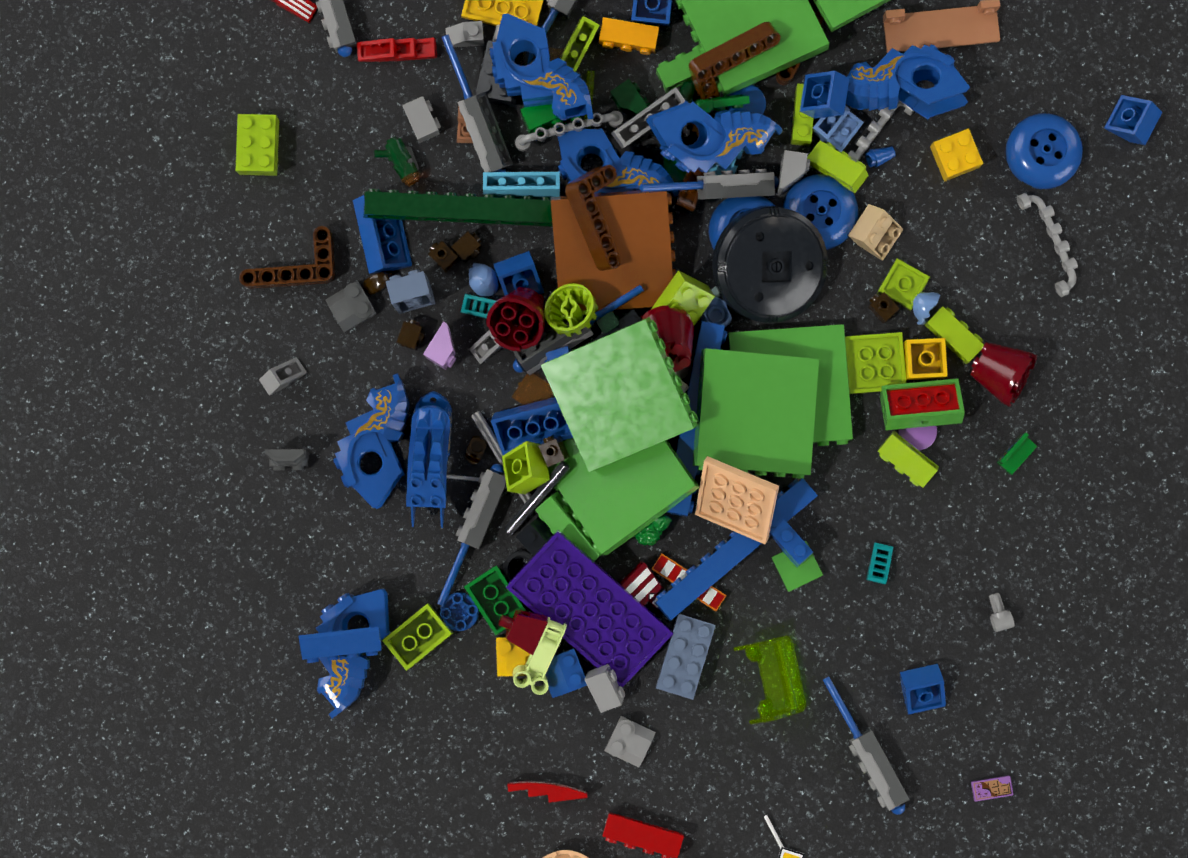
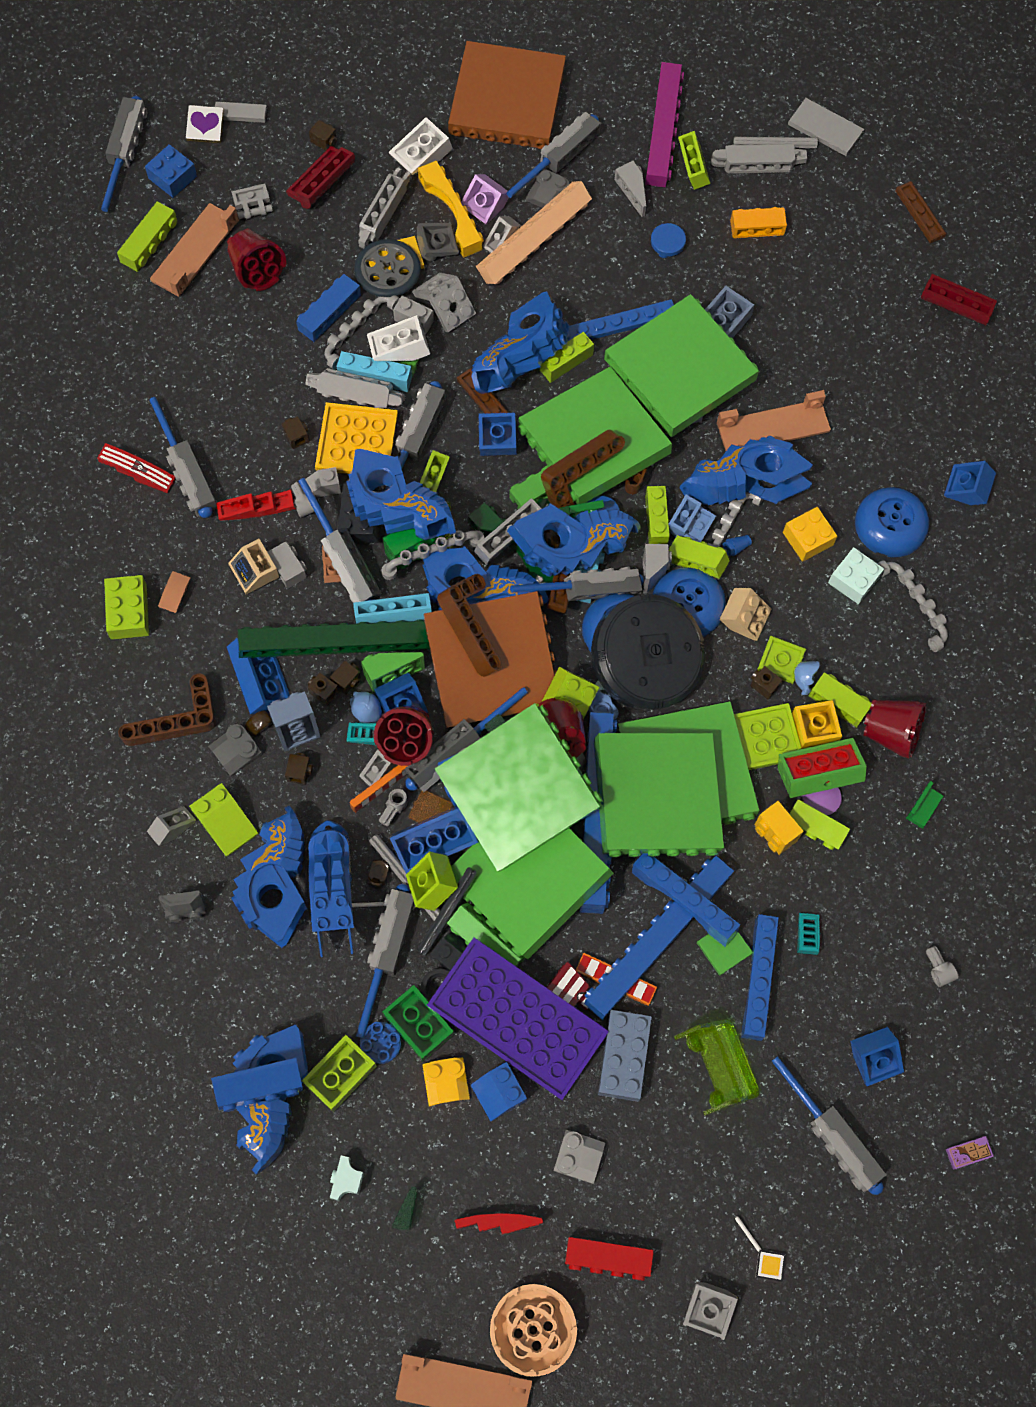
camera: 15 degrees left, 15 degrees down
(306, 134) = (174, 592): none -> nougat slope
(333, 377) = (223, 820): none -> lime slope
(387, 118) = (253, 566): none -> tan slope
(402, 158) = (272, 603): dark green piece -> none
(412, 733) = (345, 1179): none -> light aqua brick
(441, 348) = (330, 776): lavender slope -> none
(442, 55) = (301, 502): none -> light grey axle
(462, 774) = (404, 1217): none -> clear green slope
(484, 365) = (378, 787): none -> orange tile
(497, 388) = (393, 808): none -> light grey axle
(507, 245) = (388, 666): none -> bright green slope
(524, 629) = (451, 1046): dark red torso -> none
(539, 662) = (473, 1074): yellowish green piece -> none
(553, 450) = (458, 857): dark brown brick -> none
(565, 301) = (453, 711): lime gear -> none
(604, 688) = (545, 1100): light grey brick -> none
(628, 36) = (478, 466): light orange brick -> none
(652, 532) = (570, 930): green hair -> none
(736, 500) = (653, 880): light nougat plate -> none
(824, 94) = (675, 489): blue brick -> none
(826, 599) = (760, 978): none -> blue arch
(868, 459) = (778, 828): none -> yellow brick
(995, 206) = (856, 575): none -> light aqua brick

